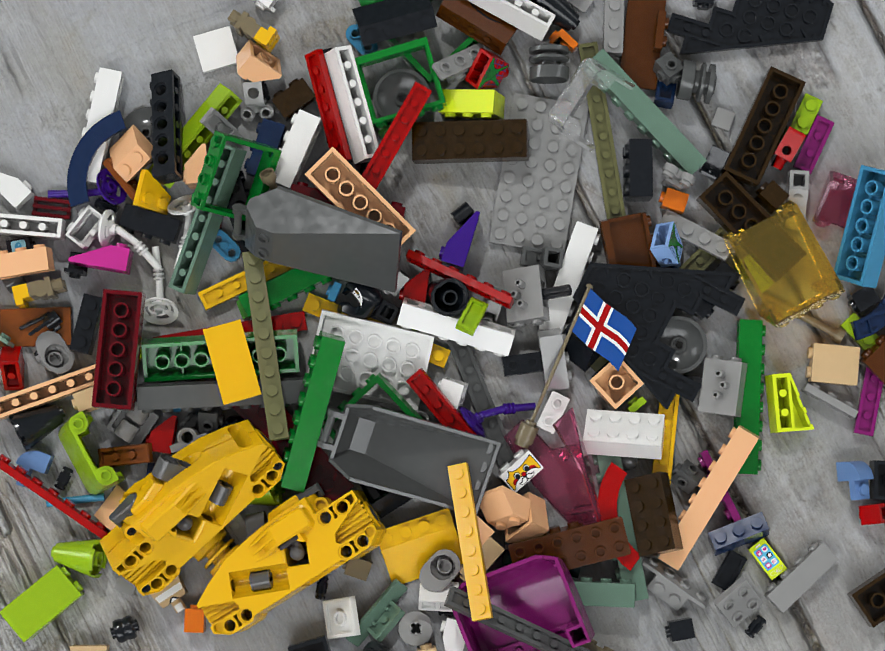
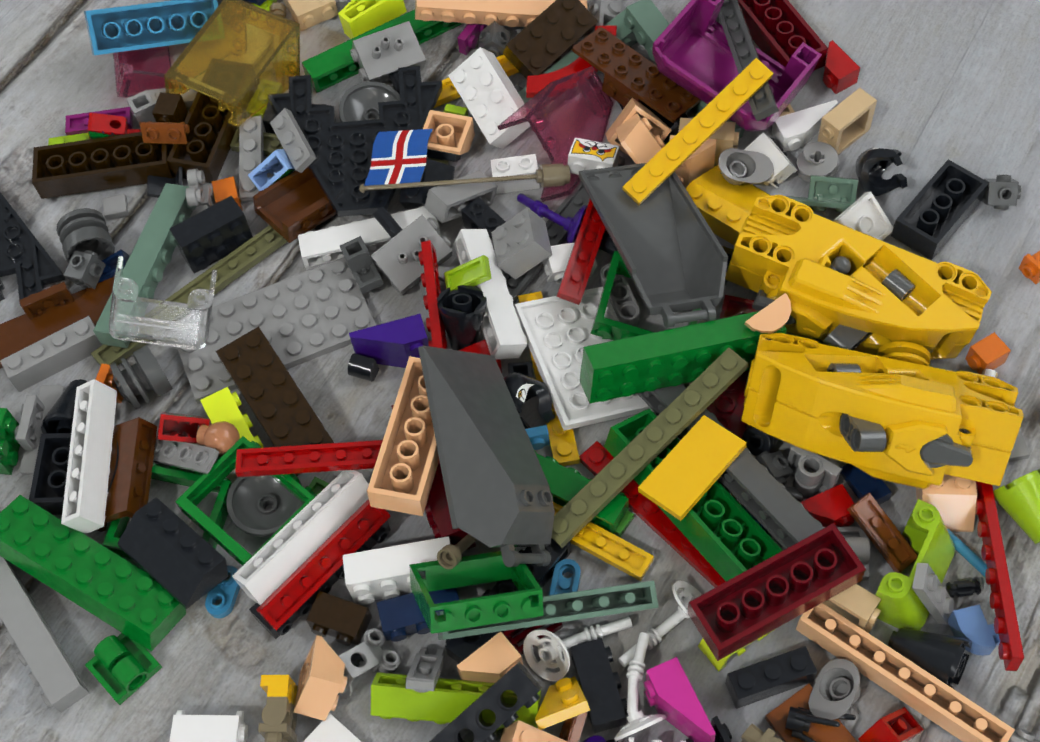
camera: 115 degrees left, 25 degrees down
(65, 448) = (932, 593): none -> light grey plate
(291, 479) = (771, 317): none -> light nougat tile
(456, 87) = (218, 436): none -> nougat piece
(477, 371) = (521, 243): none -> light grey brick
(676, 266) = (293, 140): none -> light grey plate
(755, 174) = (164, 132): none -> dark orange hinge

